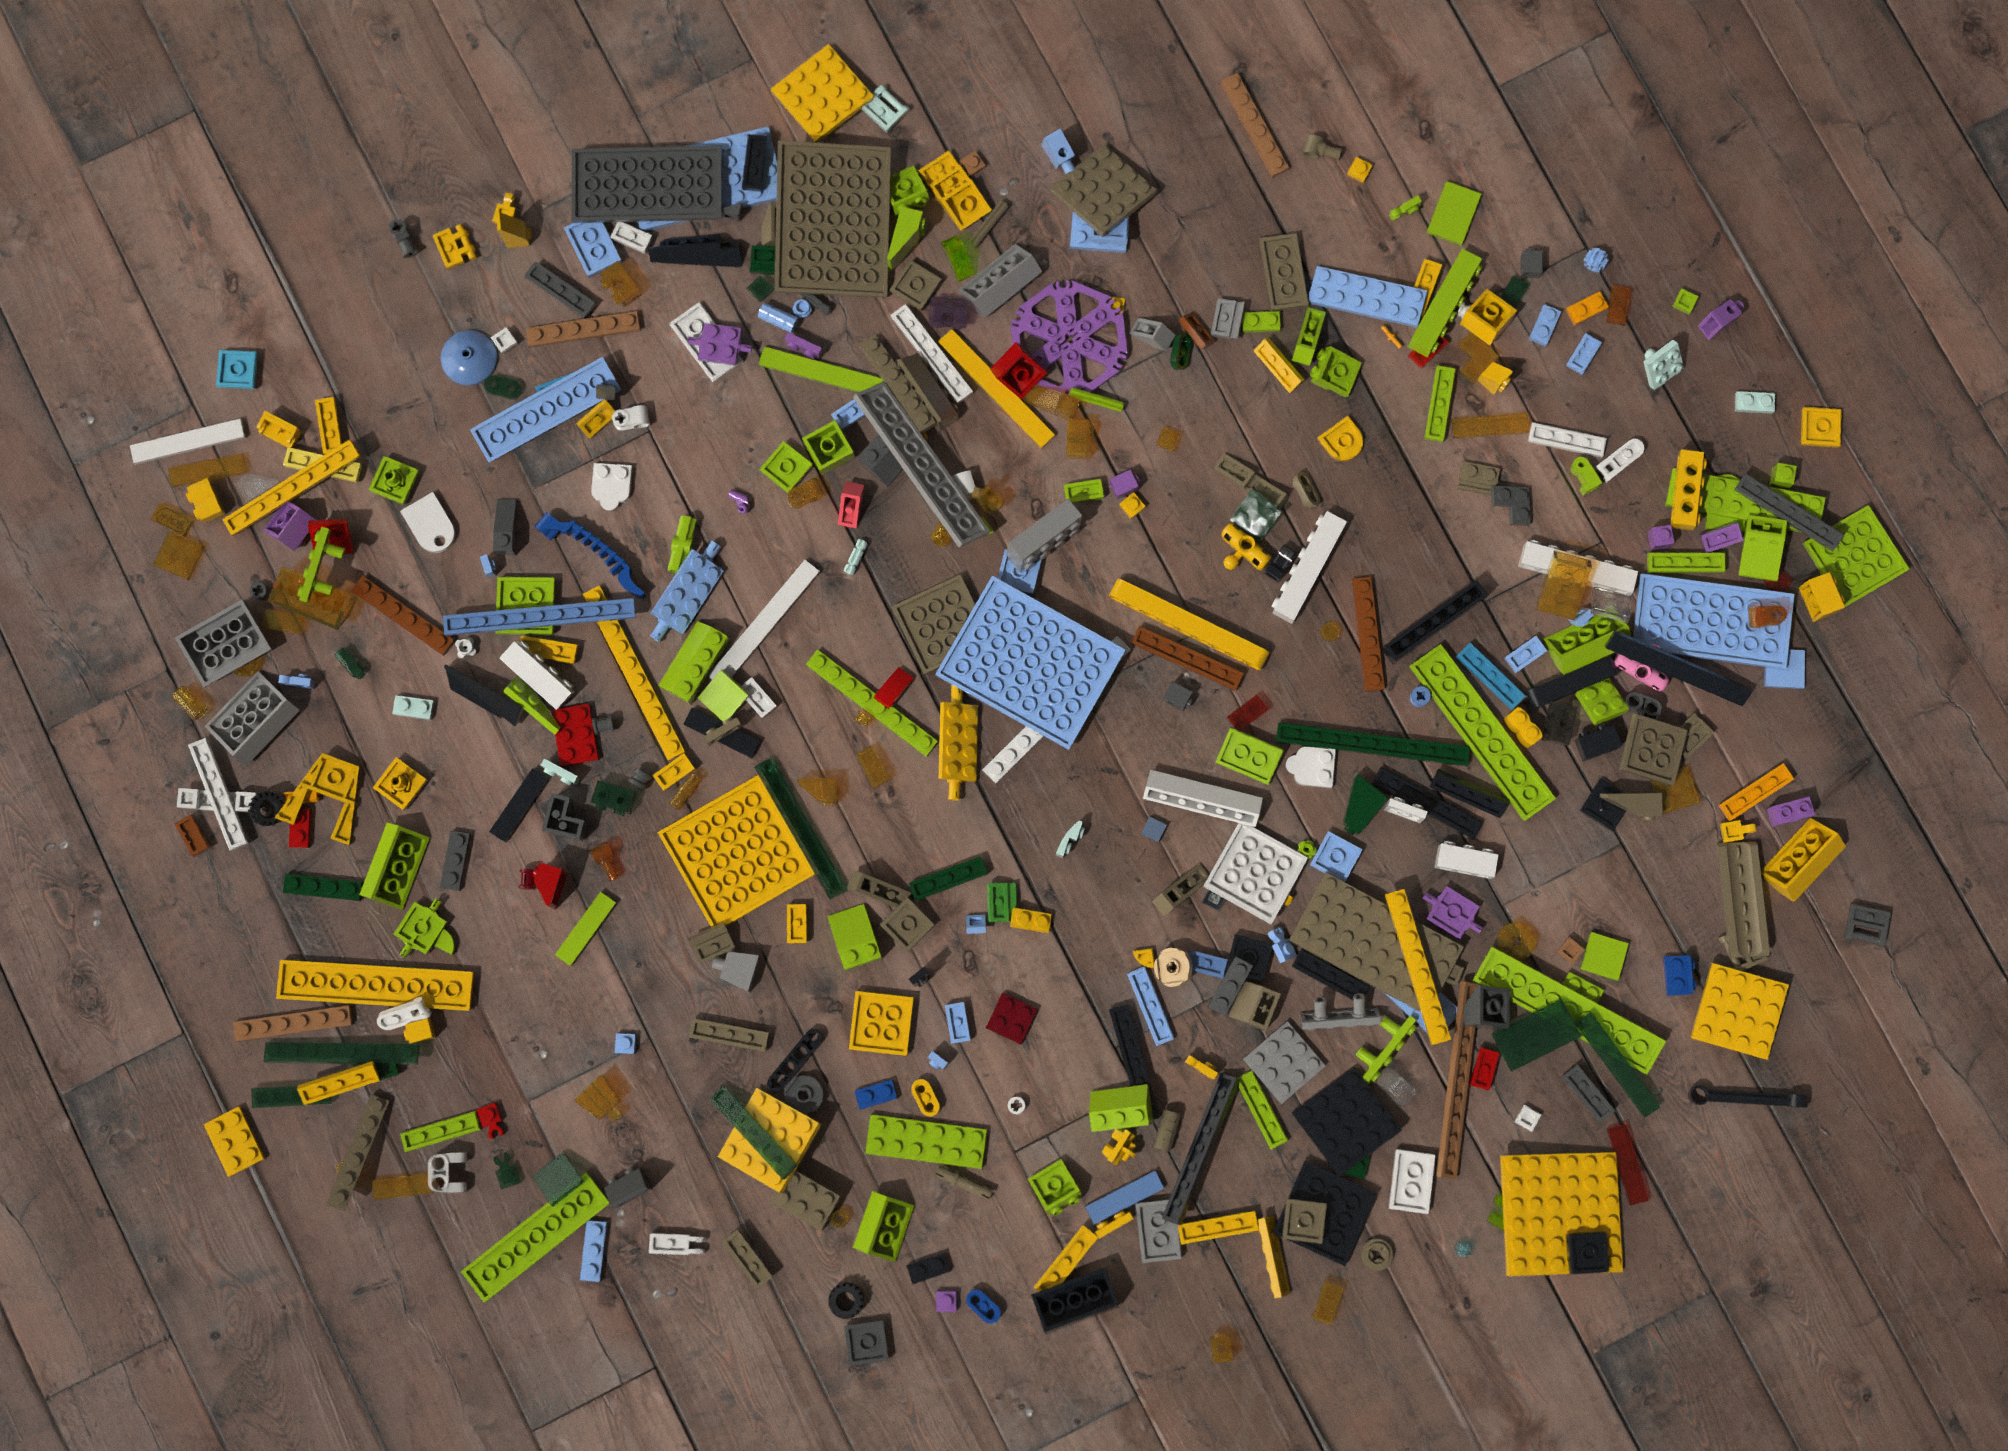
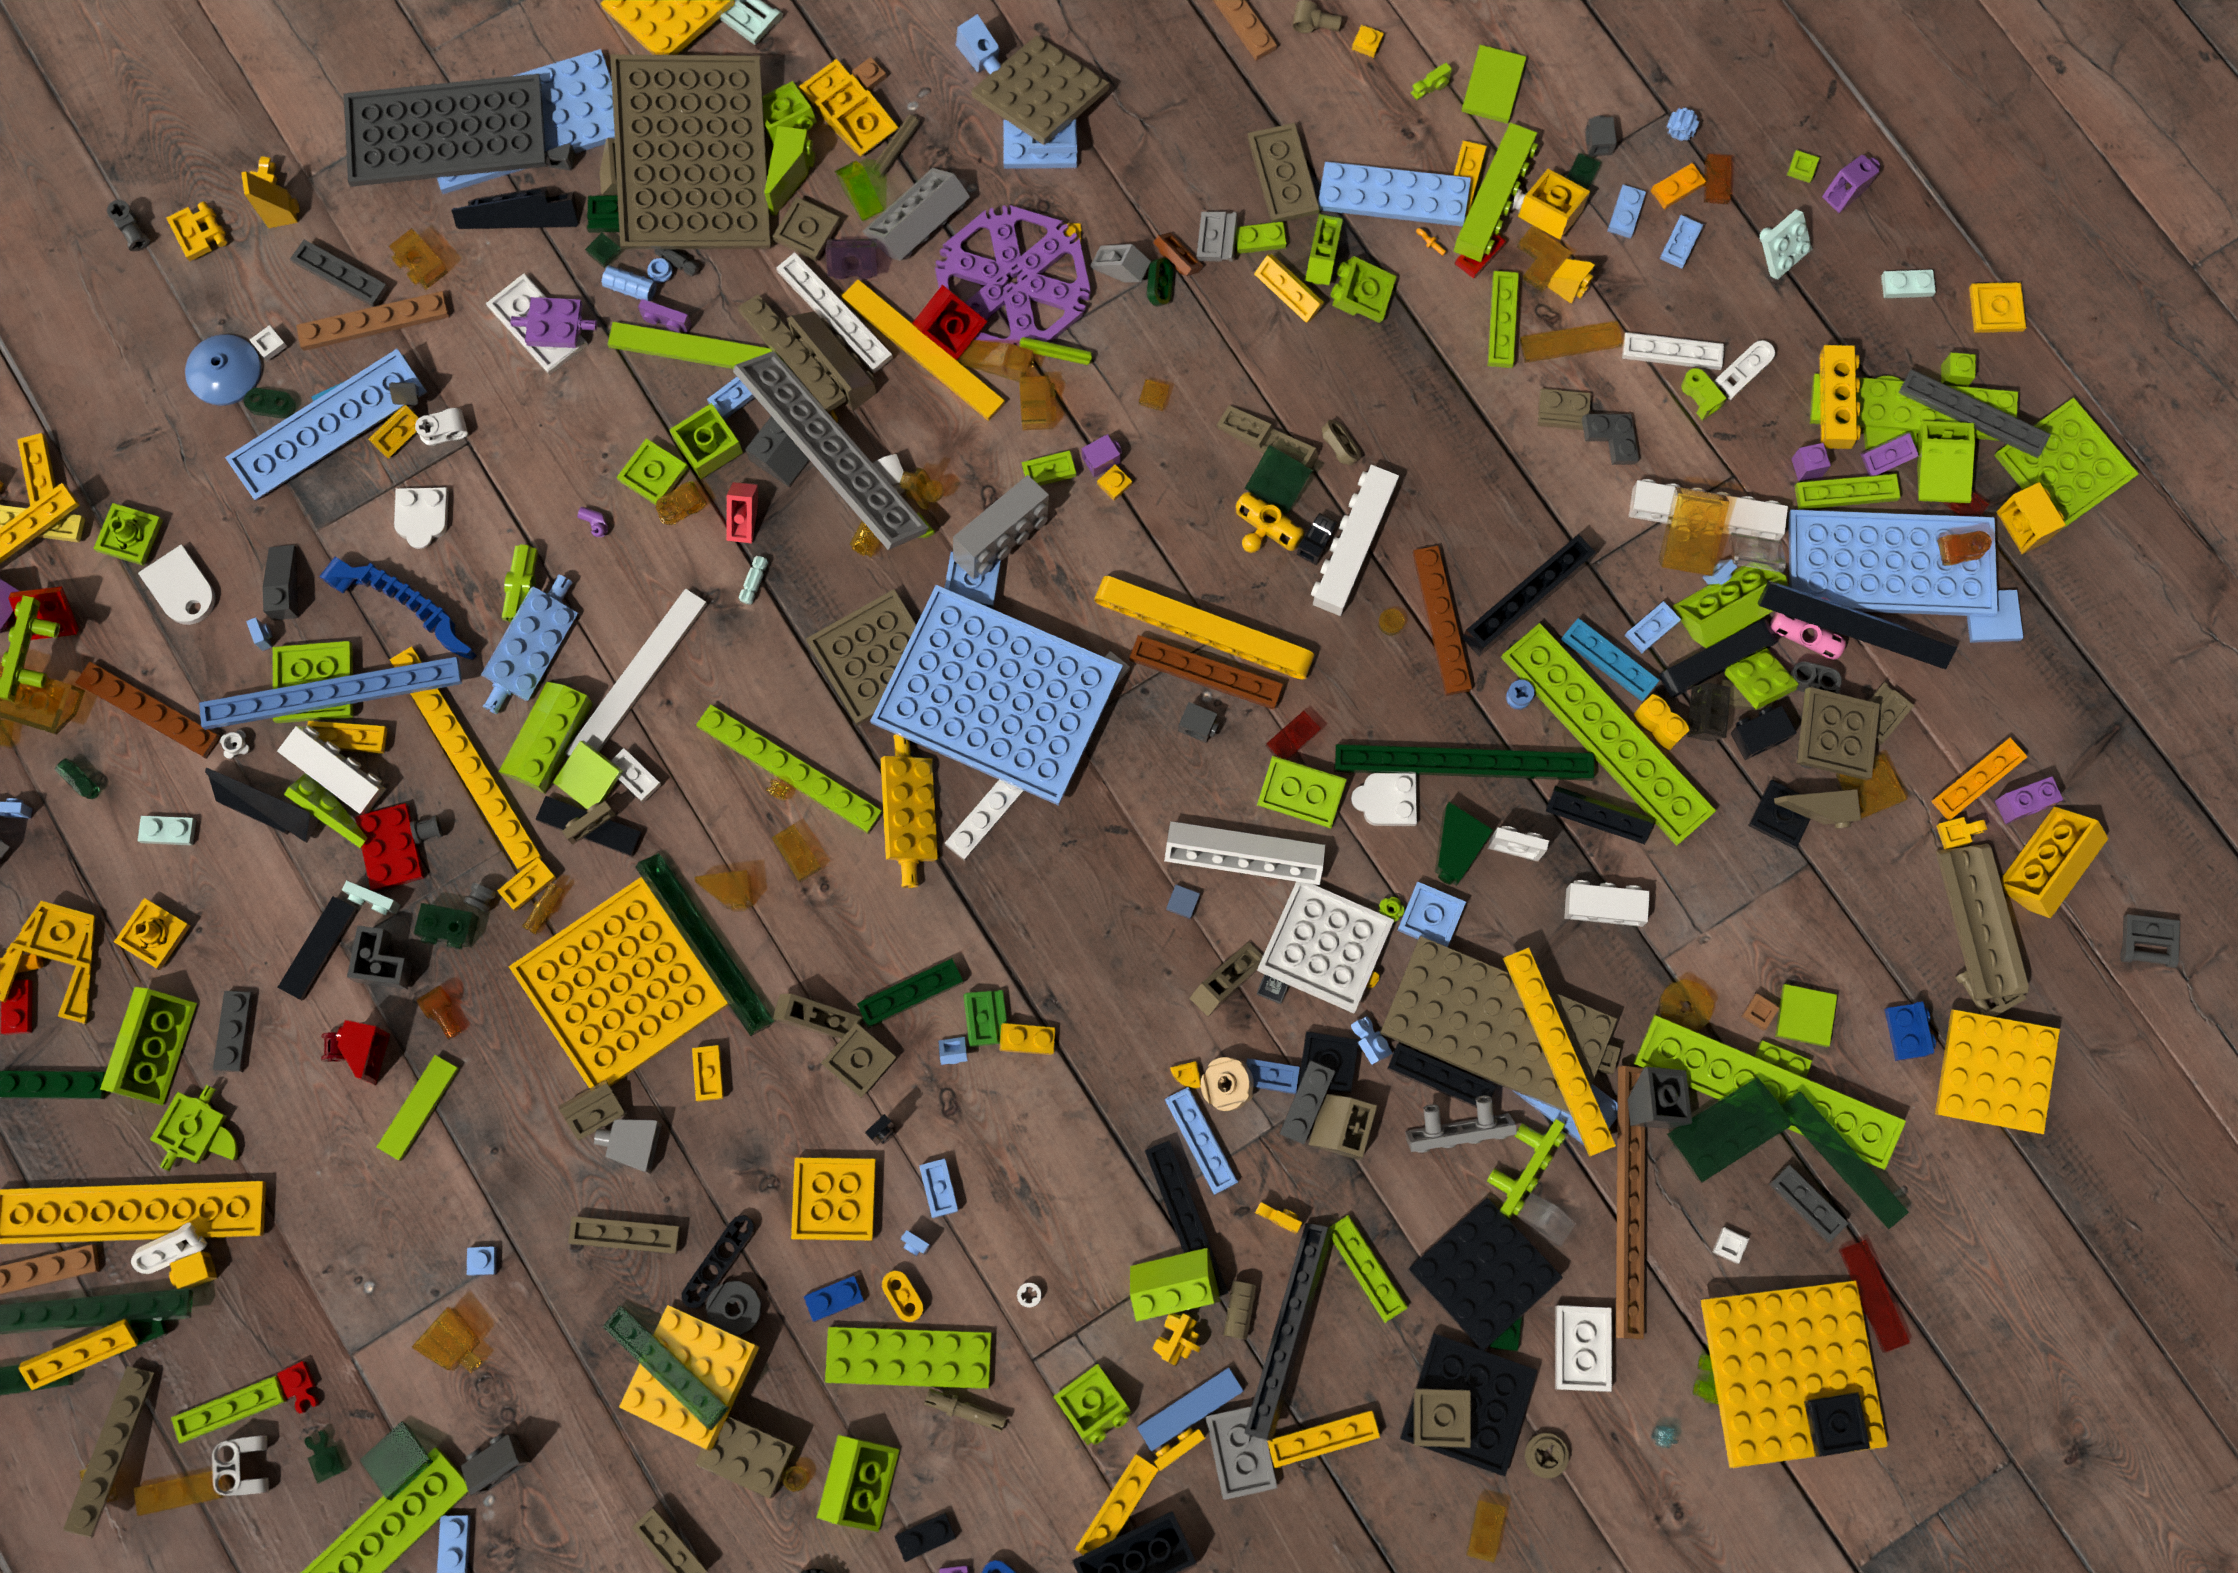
camera: 10 degrees left, 5 degrees down
(592, 246) = (378, 214): light blue plate -> none
(631, 237) = (429, 199): white plate -> none
(674, 1244) = (566, 1537): white hinge -> none
(754, 162) = (584, 92): black plate -> none
(854, 937) = (788, 1085): lime slope -> none
(893, 687) = (815, 745): red slope -> none
(1011, 1018) = (1012, 1176): dark red plate -> none
(1073, 834) = (1075, 916): light aqua slope -> none
(1274, 1258) = (1405, 1473): yellow plate -> none
(1284, 1062) = (1390, 1200): light grey plate -> none
(1342, 440) = (1382, 376): yellow tile -> none
(1433, 805) = (1561, 839): black tile -> none
(1452, 912) = (1596, 975): medium lavender plate -> none
(1484, 1069) = (1663, 1183): red plate -> none
(1749, 1098) = (2033, 1188): black piece -> none

